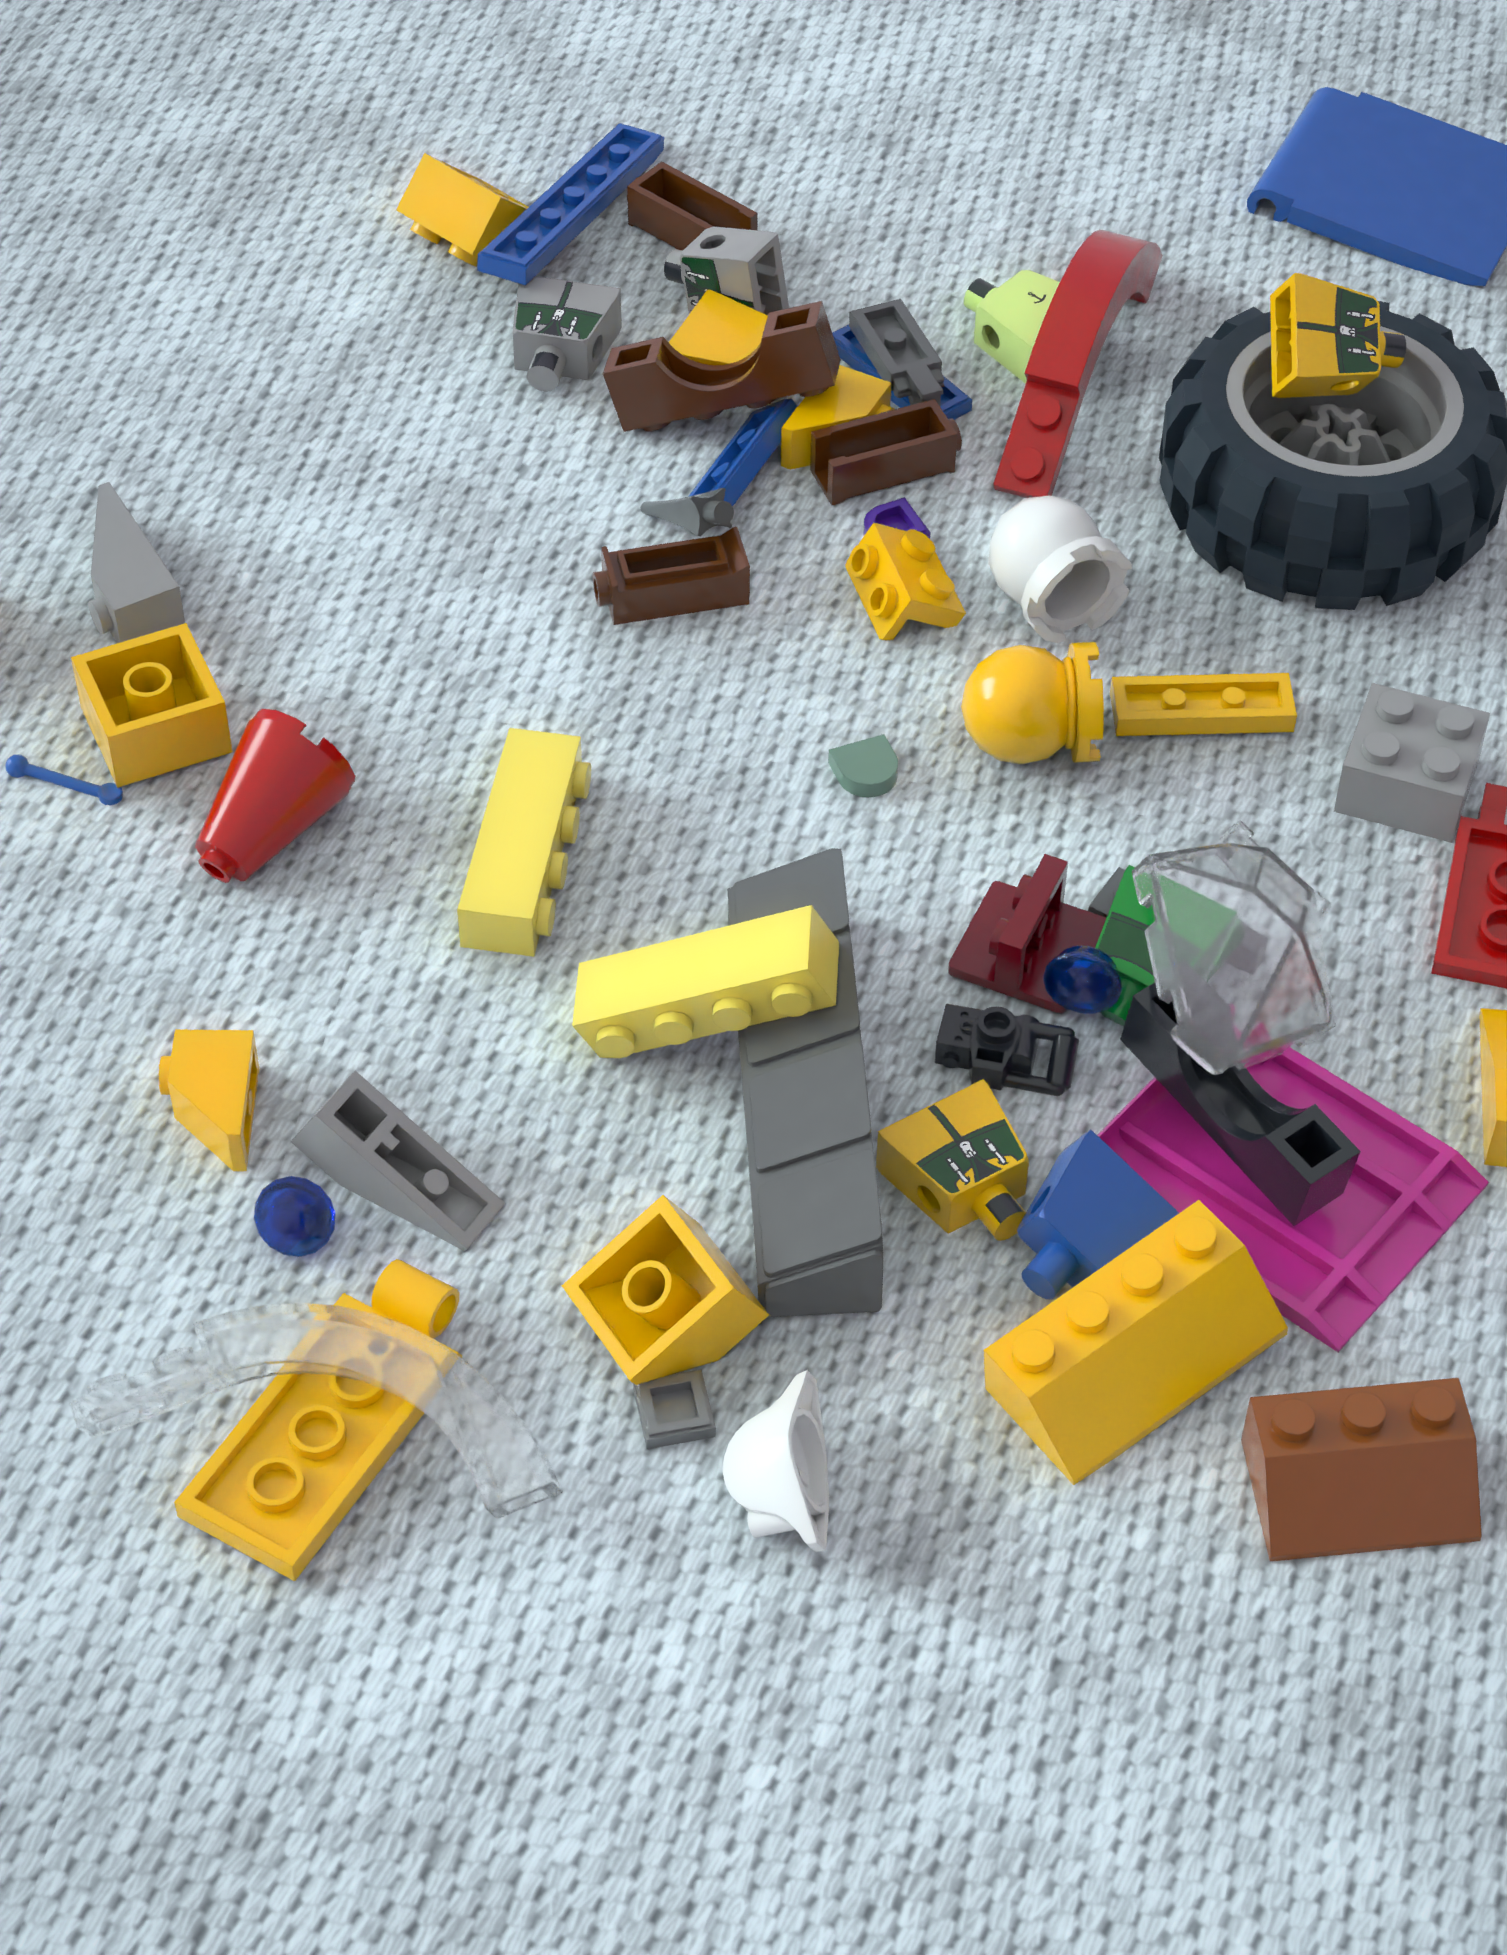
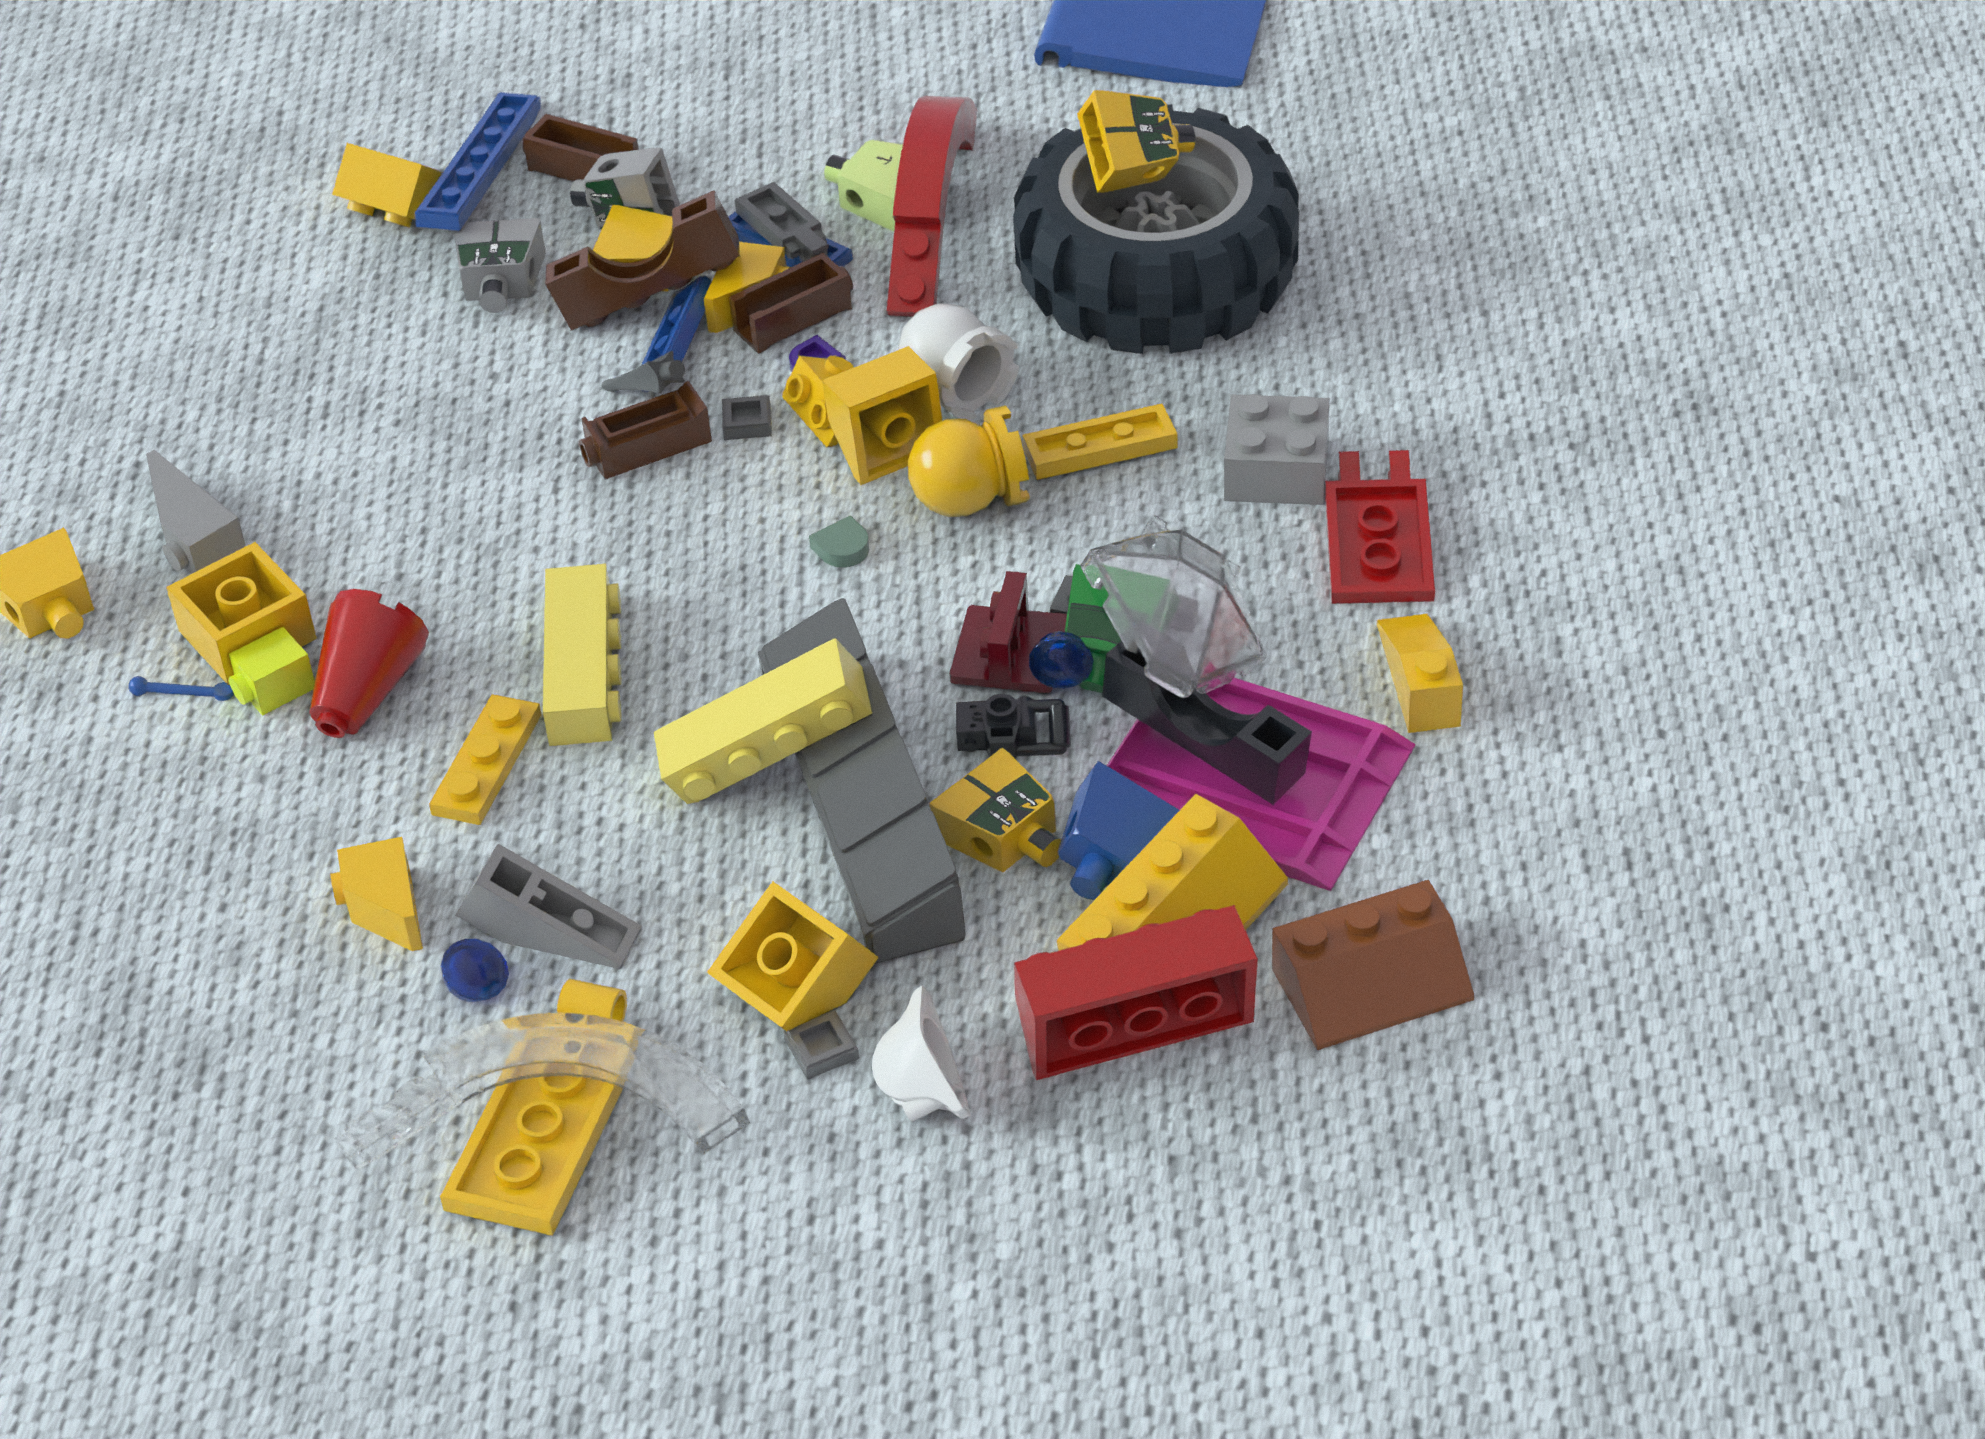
camera: 10 degrees left, 5 degrees down
(166, 783) = (271, 671): none -> neon yellow brick
(381, 948) = (485, 759): none -> yellow plate
(796, 583) = (746, 417): none -> dark grey tile
(952, 614) = (882, 411): none -> yellow slope
(1063, 1439) = (1136, 991): none -> red slope

